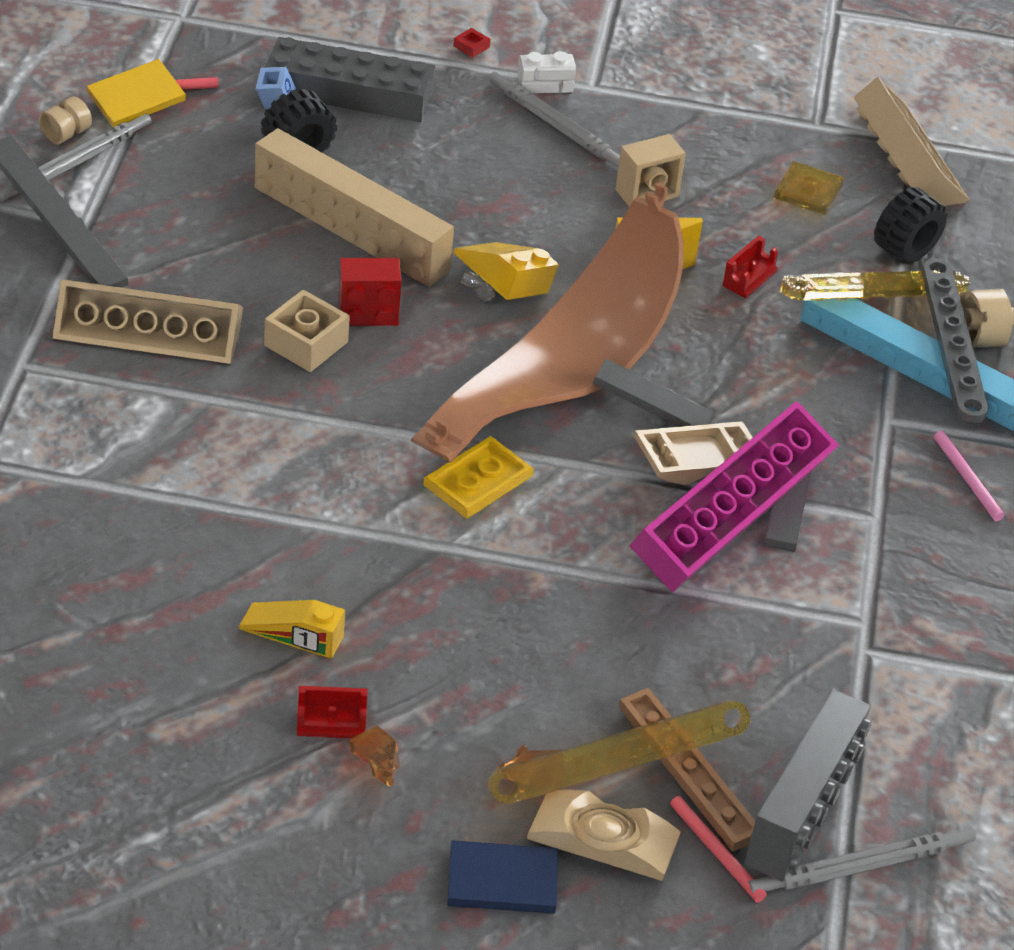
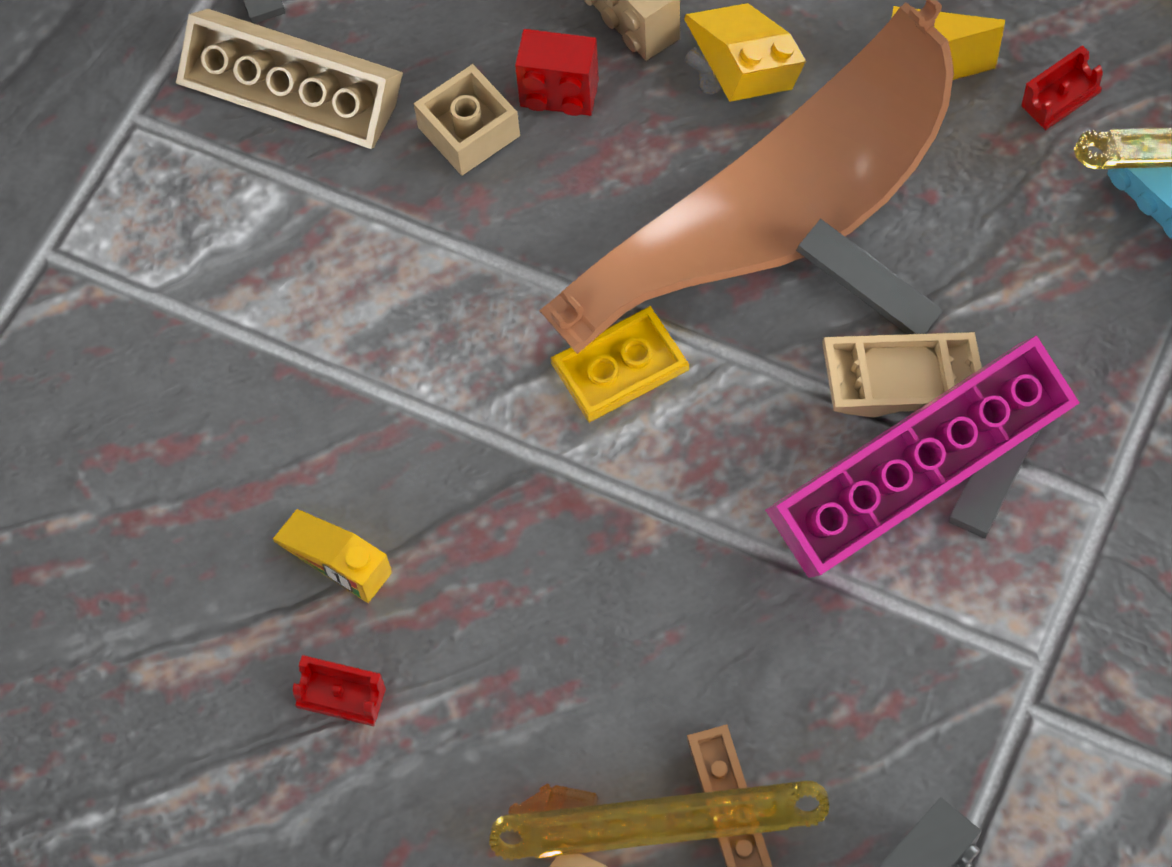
camera: 25 degrees right, 20 degrees up
(379, 751) = (378, 755): clear orange slope -> none

